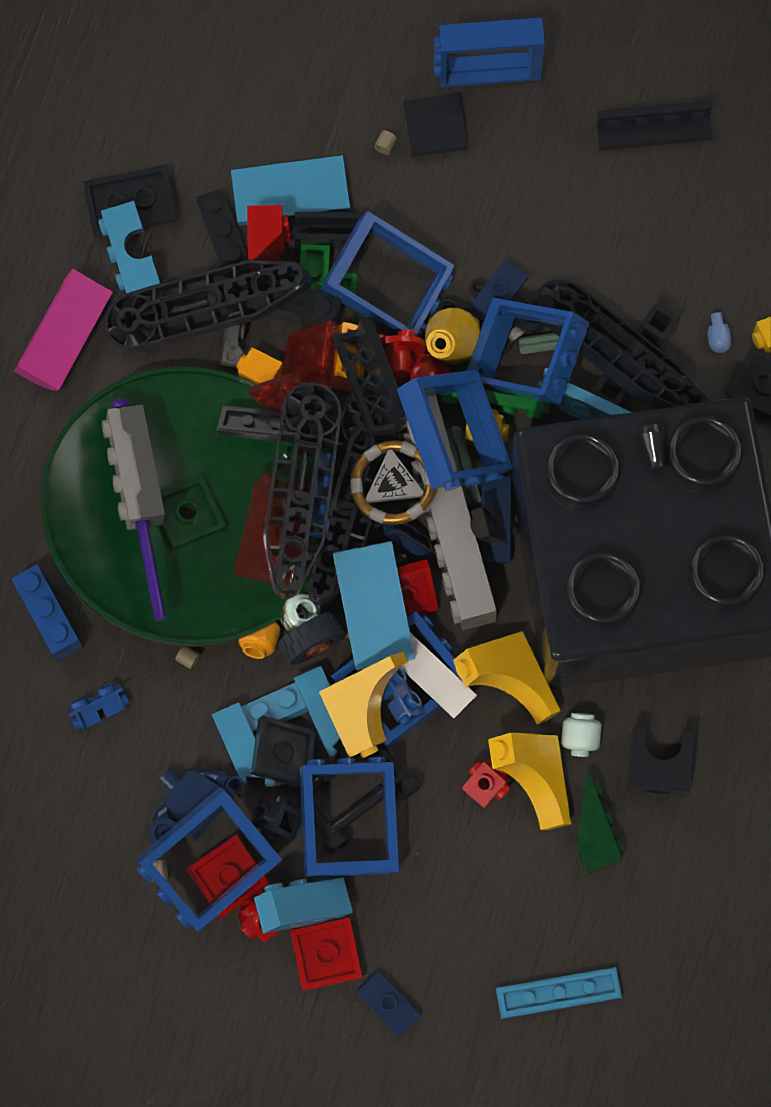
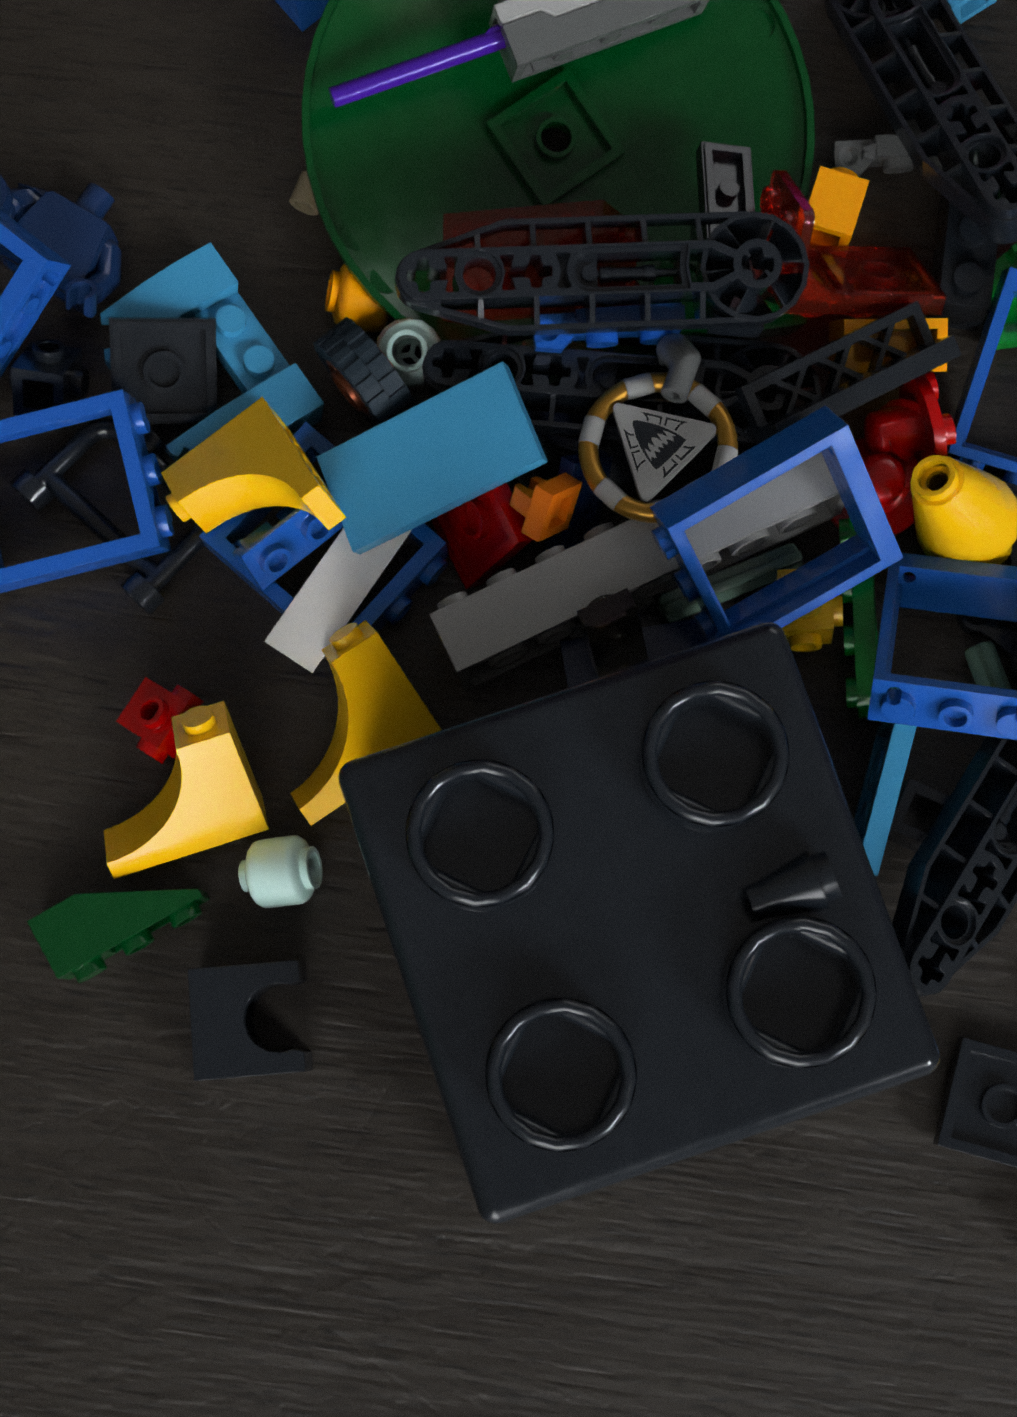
camera: 80 degrees right, 5 degrees up
(86, 709) = (189, 51): blue hinge -> none
(352, 459) = (682, 363): none -> dark grey arm
(410, 549) = (546, 505): none -> orange tile

